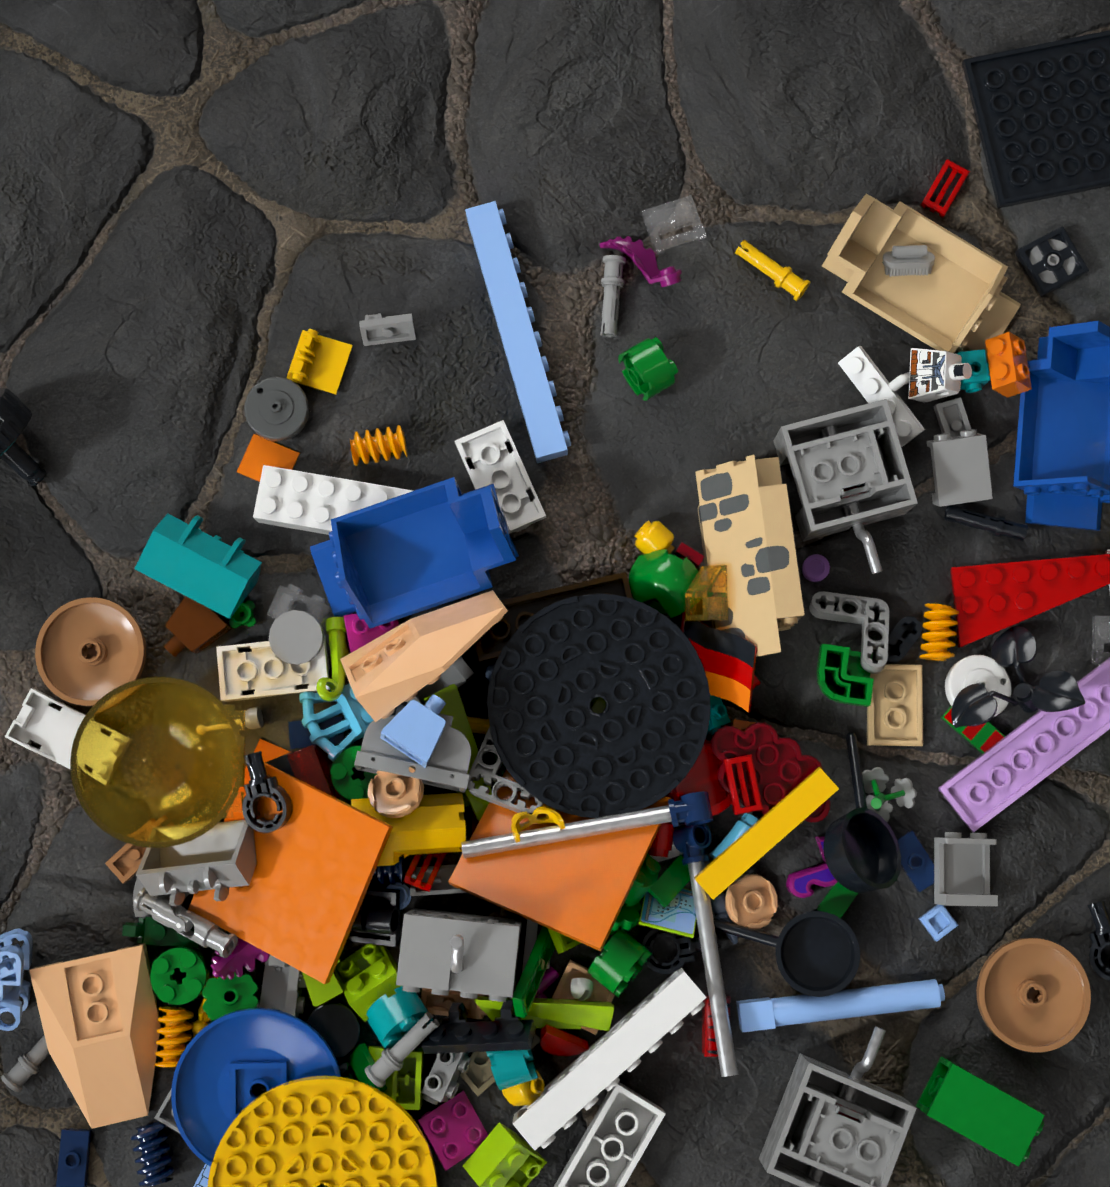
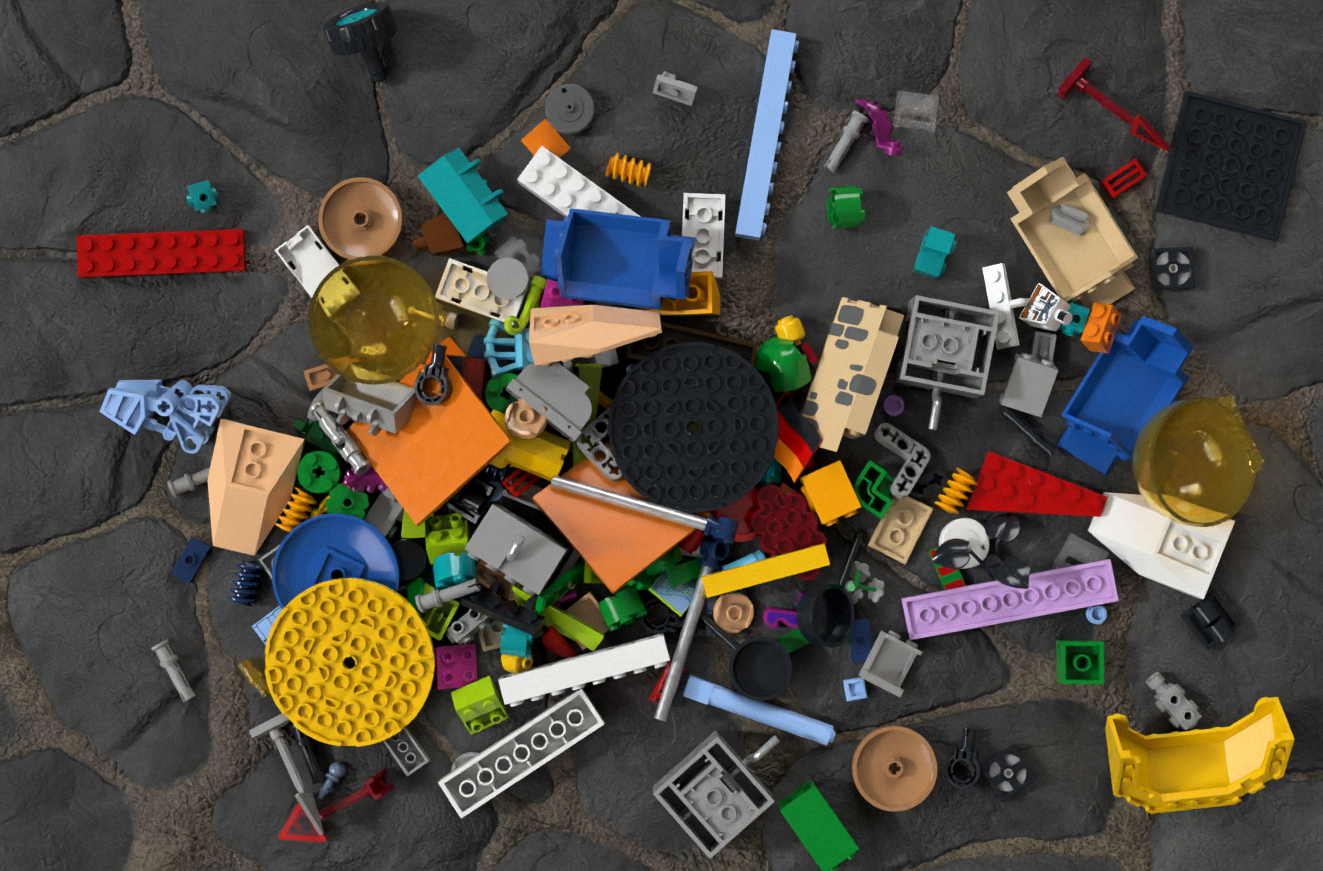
camera: 25 degrees right, 5 degrees up
(319, 361) = (615, 89): yellow hinge -> none
(416, 729) = (560, 384): light blue torso -> none
(536, 555) = (702, 300): none -> light orange wedge
(551, 817) = (625, 488): yellow cap -> none
(581, 988) = (588, 613): white hinge -> none
(707, 595) = (806, 388): clear yellow slope -> none
(732, 787) = (757, 529): red tile -> none
(773, 370) = (932, 253): none -> teal brick
(782, 276) = (974, 187): yellow pin -> none
(795, 705) = (829, 493): none -> light orange brick
(936, 120) = (1139, 128): none -> dark red piece

